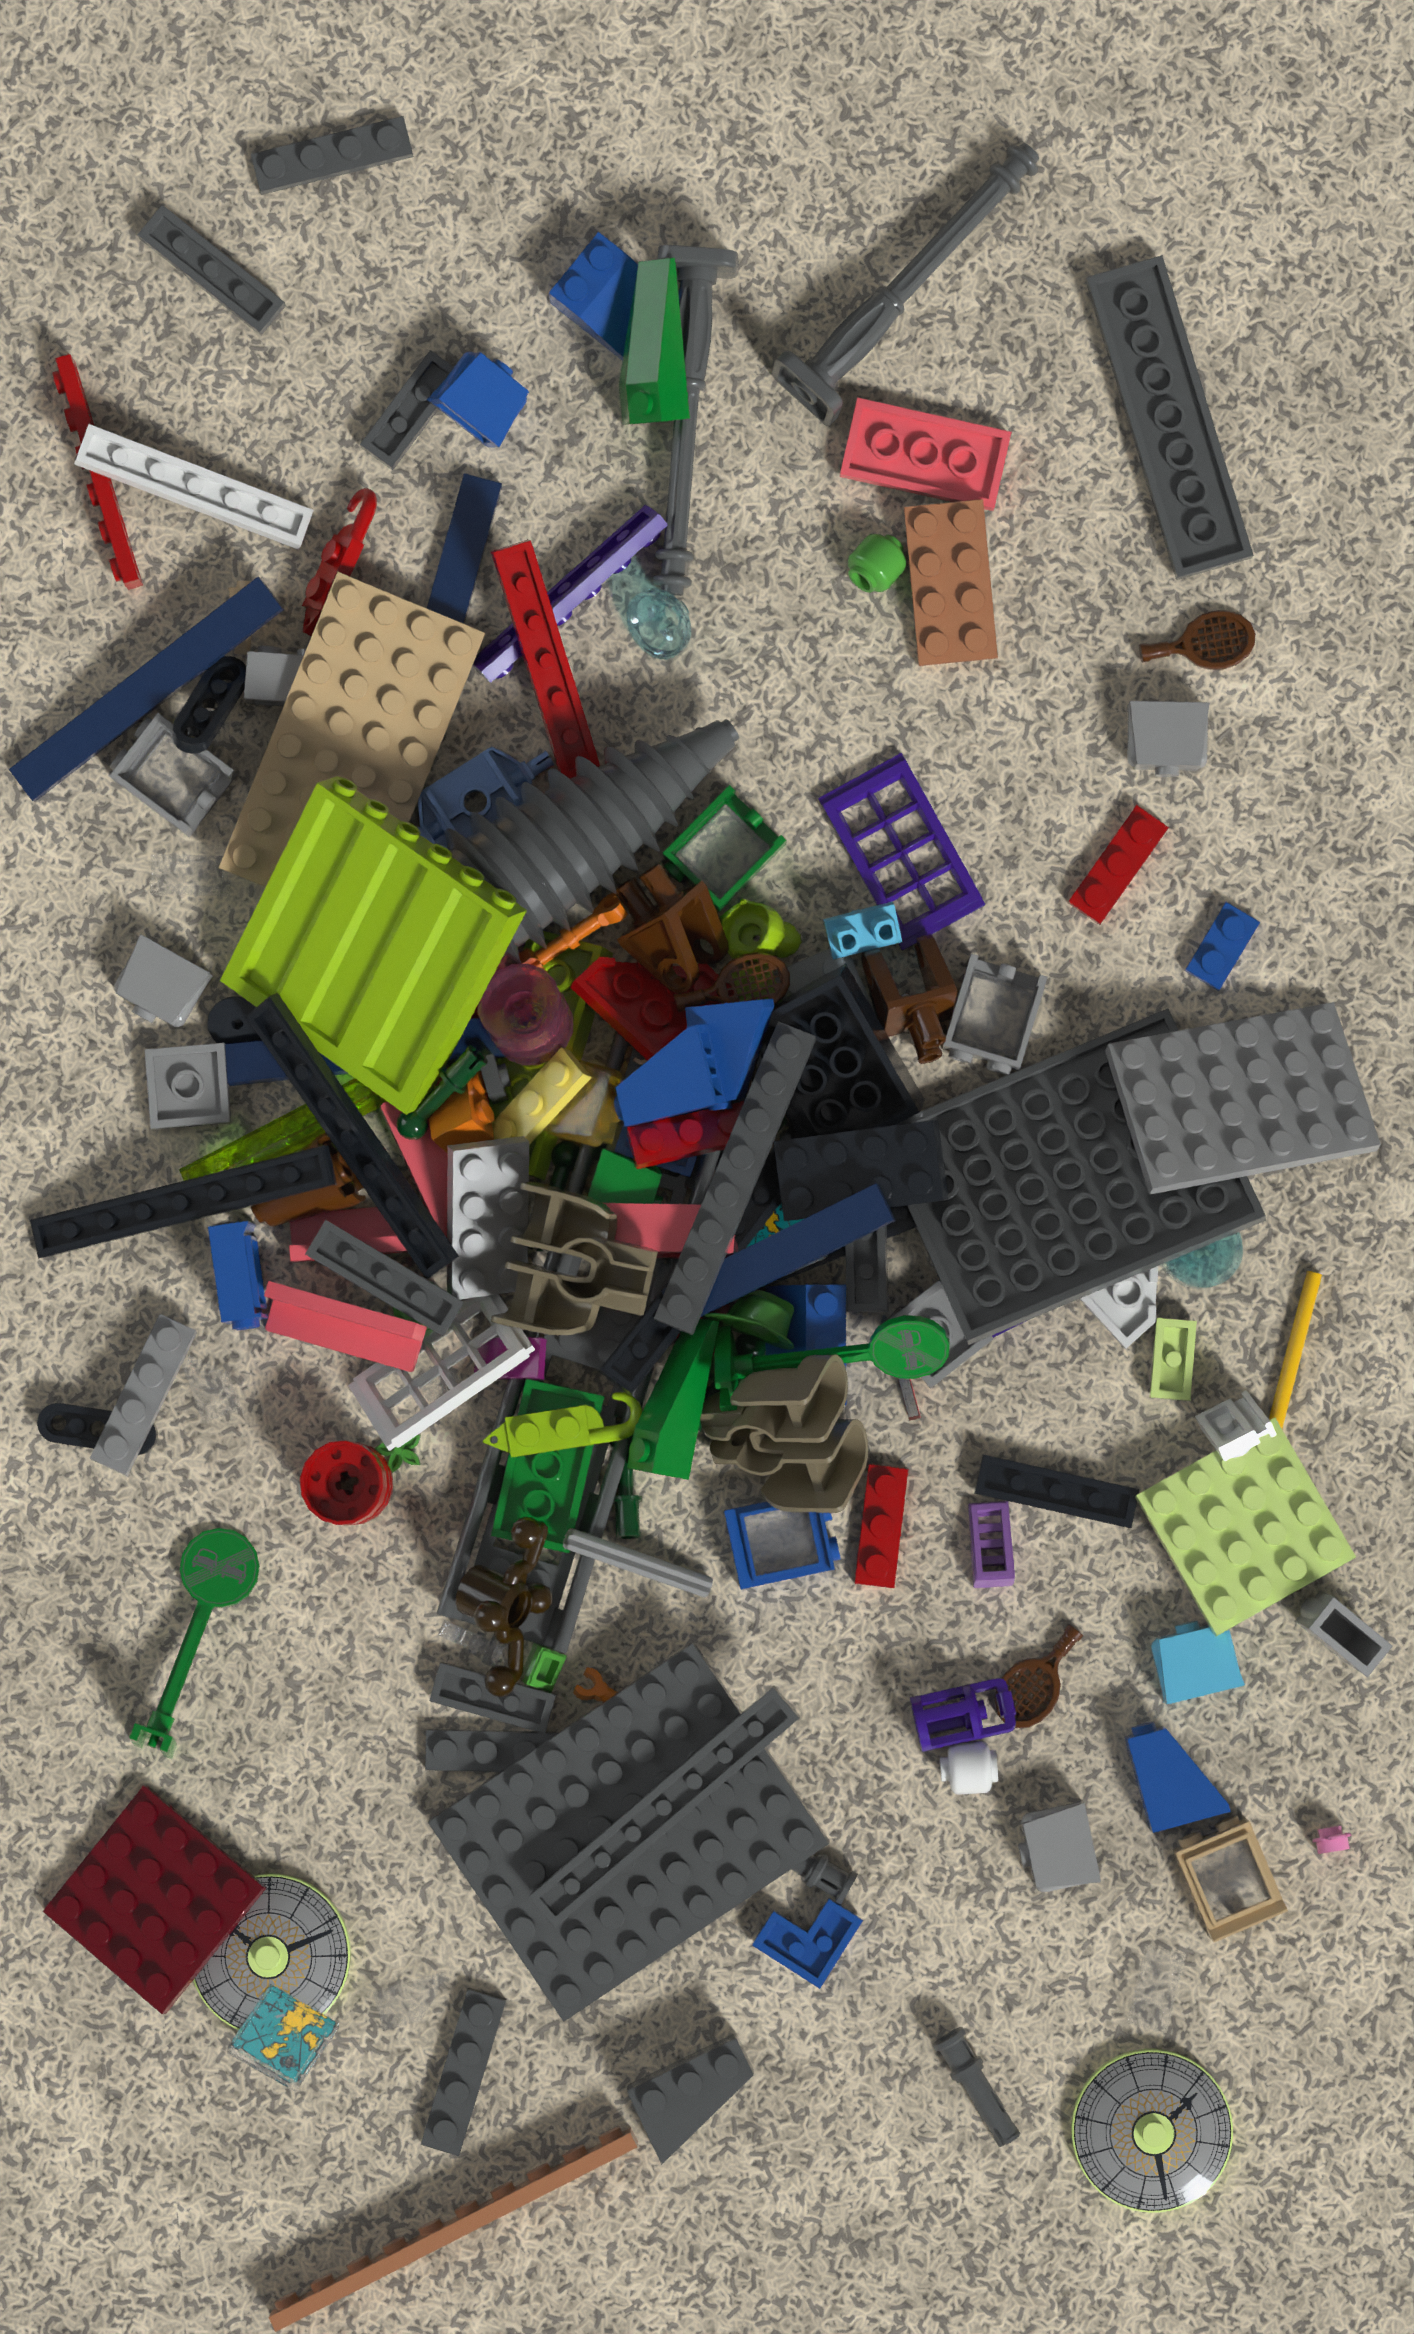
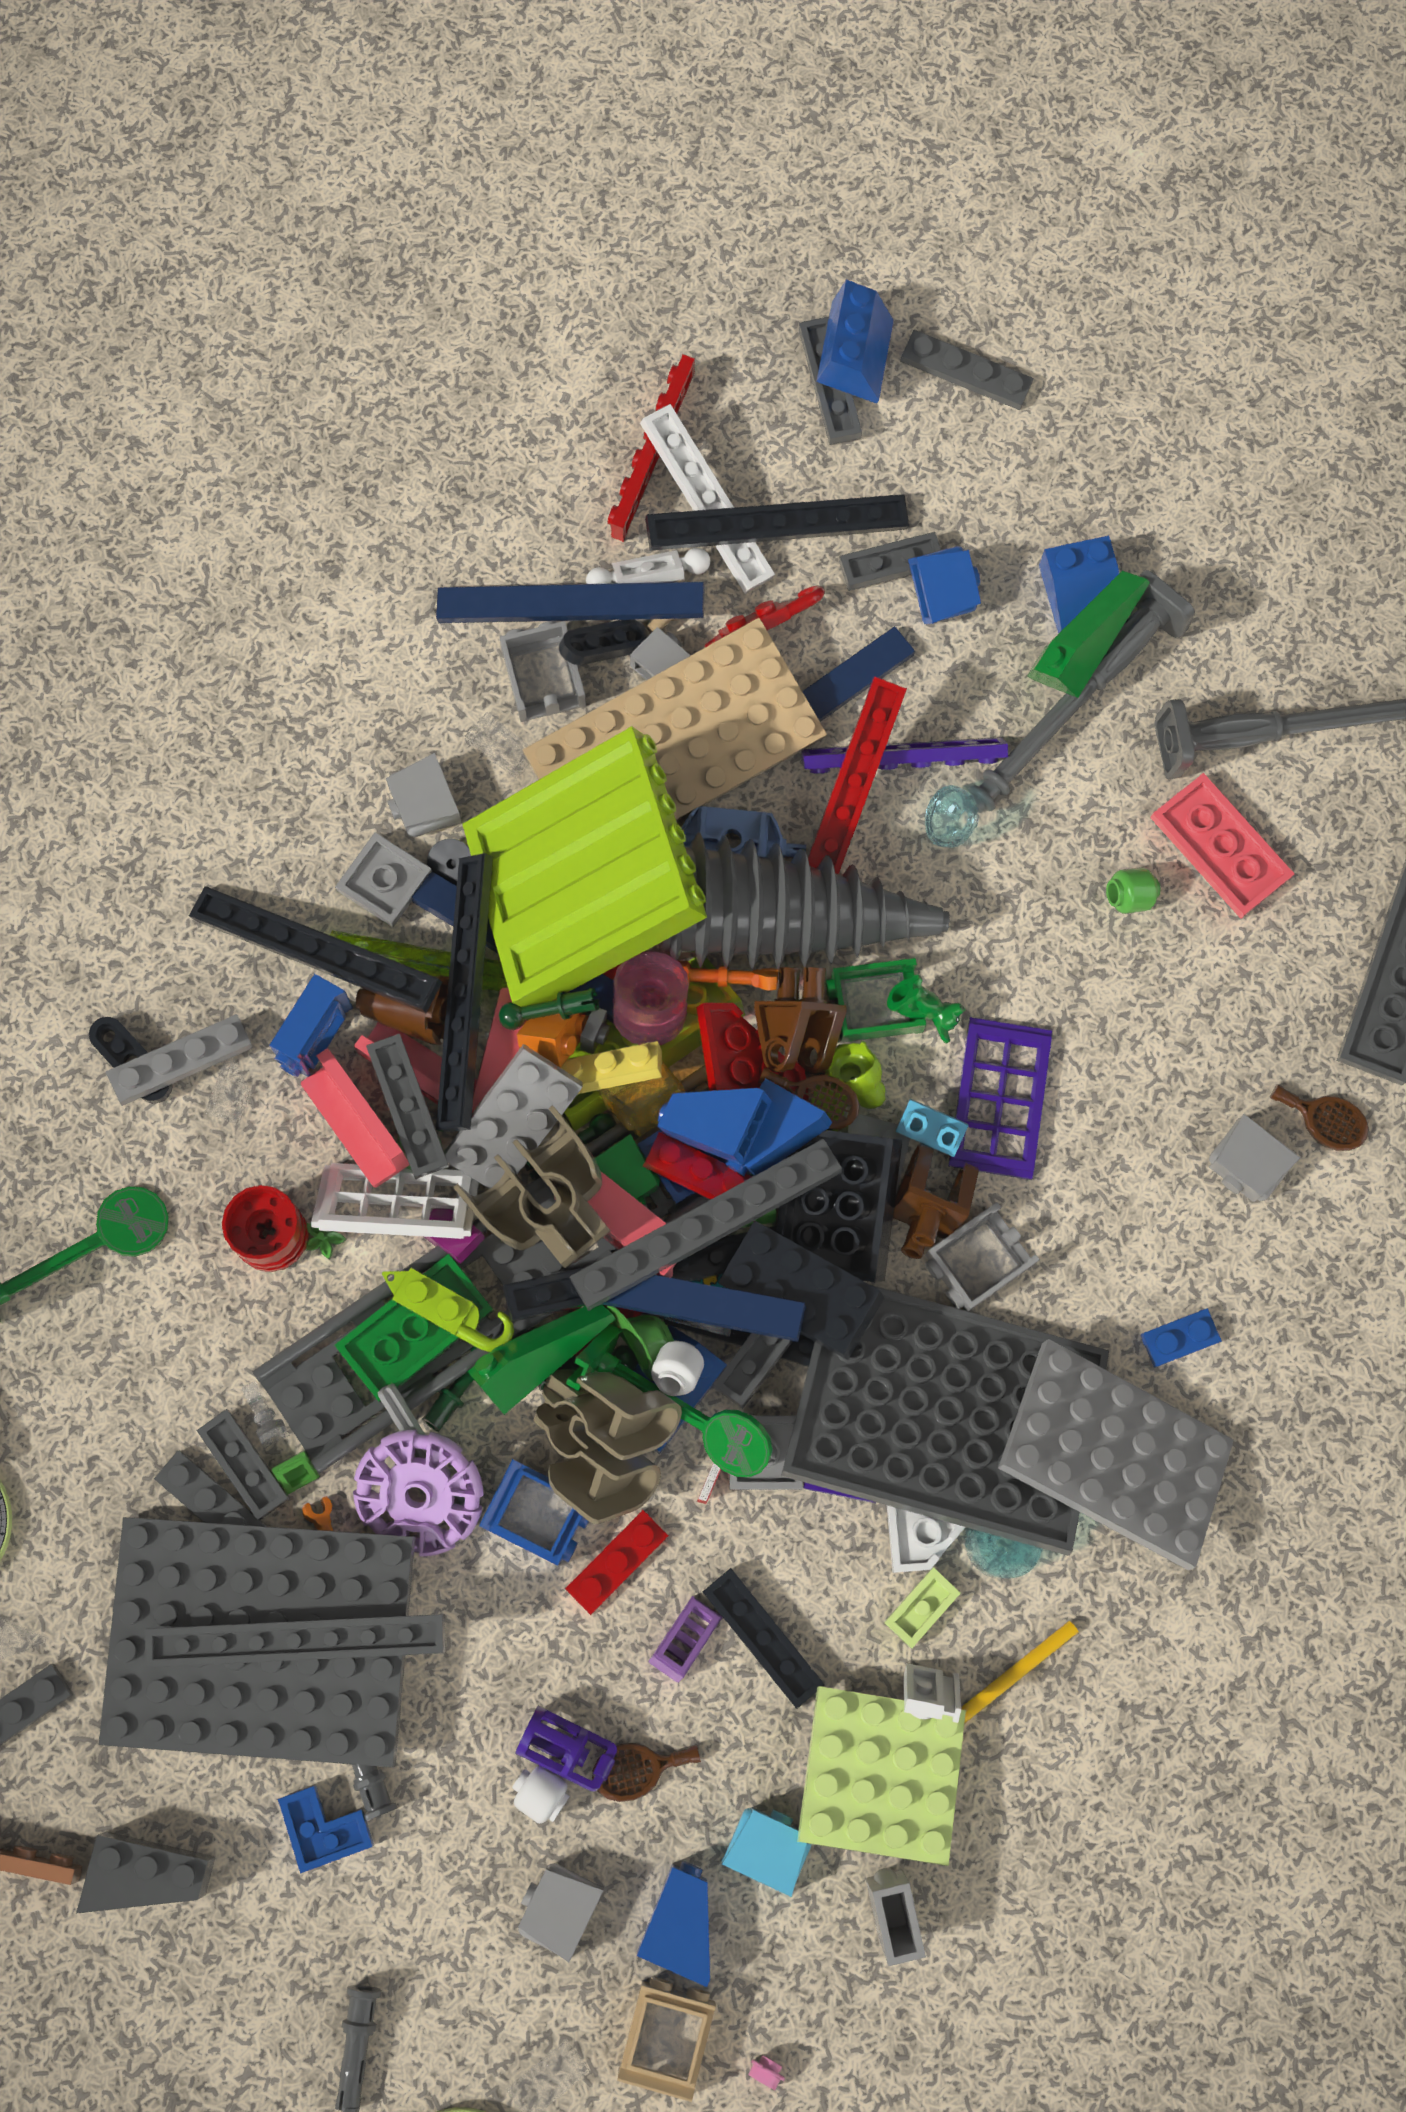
camera: 30 degrees right, 10 degrees down
(193, 597) = (652, 569): none -> white plate
(210, 216) = (856, 342): none -> blue slope
(277, 458) = (776, 522): none -> black tile
(503, 1602) = (304, 1399): dark brown wheel -> none
(664, 1581) = (430, 1476): none -> lavender plate
(759, 826) = (917, 1002): none -> green animal
(808, 1323) = (677, 1368): none -> white head
(950, 582) = (1175, 942): nougat plate -> none
(1118, 865) = (1148, 1223): red plate -> none

